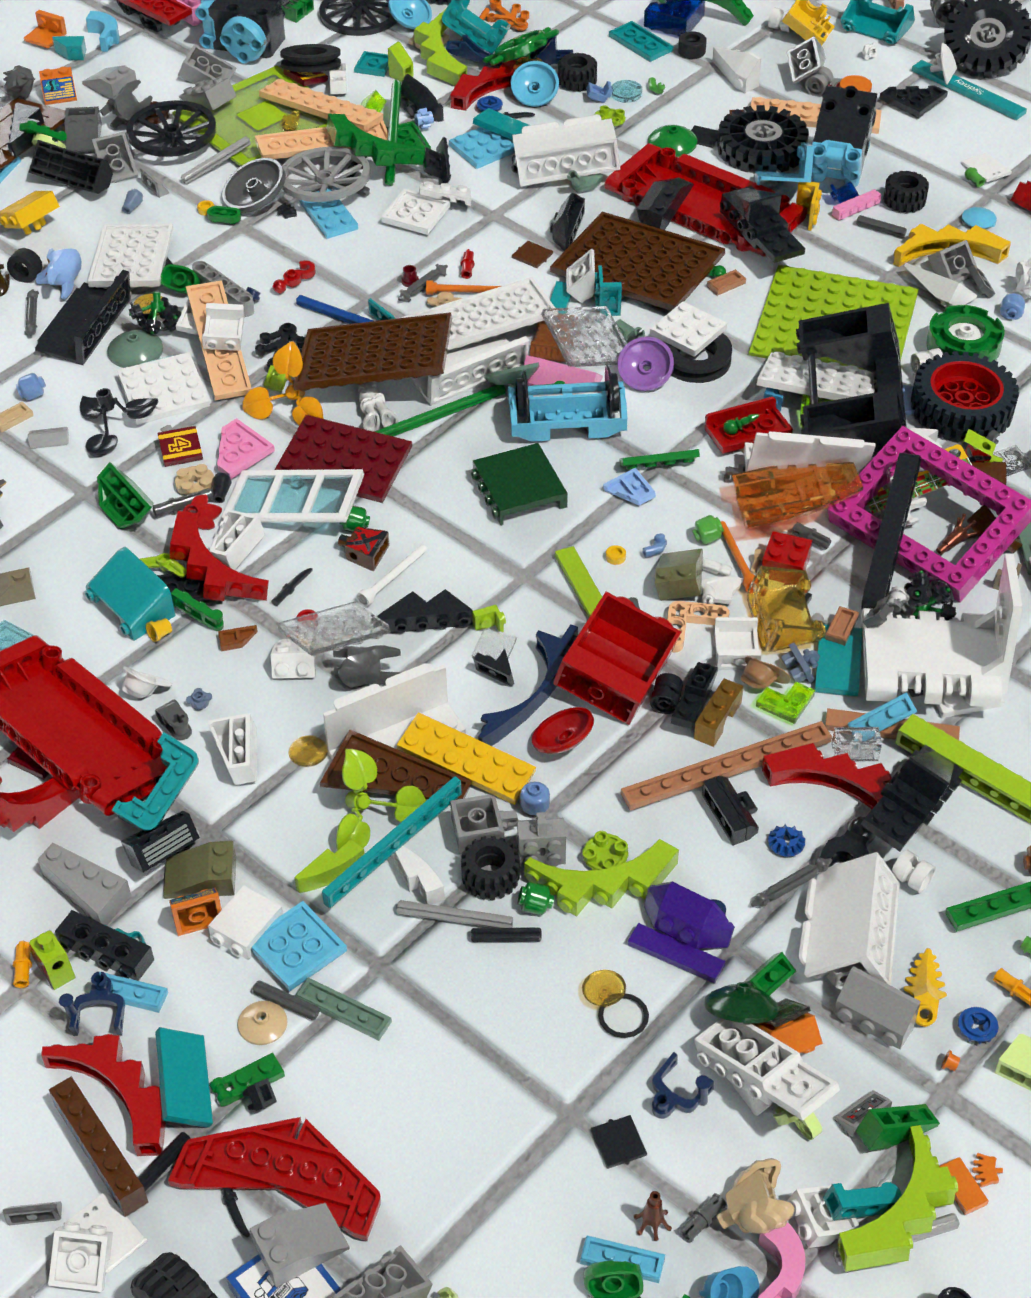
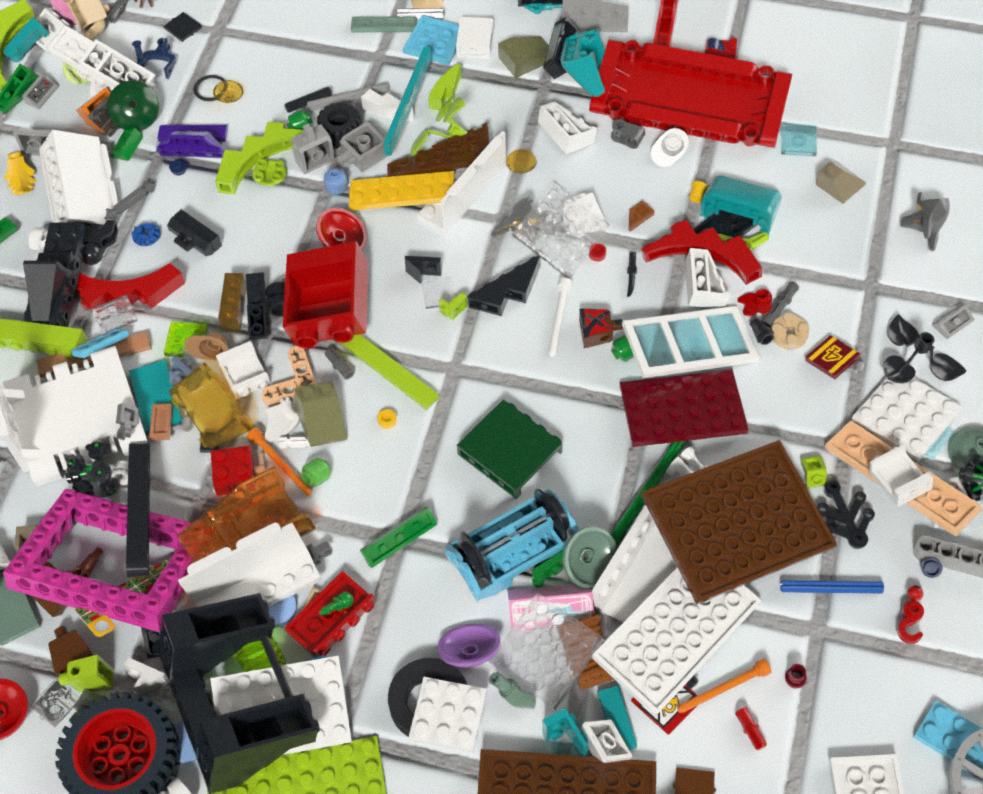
camera: 155 degrees right, 10 degrees up
(121, 497) = (822, 281): green wedge -> none
(195, 910) = (509, 23): orange slope -> none
(198, 610) = (680, 212): green plate -> none
(199, 699) = (624, 158): sand blue plate -> none
(241, 448) = (780, 378): bright pink plate -> none
(288, 362) = (792, 431): light orange plant -> none
(378, 312) = (780, 604): teal slope -> none
(420, 284) = (776, 676): dark grey wheel -> none
(442, 298) = (737, 659): tan plate -> none
(504, 722) = (382, 295): dark blue slope -> none
(630, 487) = (408, 492): light blue wing -> none
(658, 546) = (353, 440): medium blue arm -> none
(722, 765) = (208, 269): nougat plate -> none

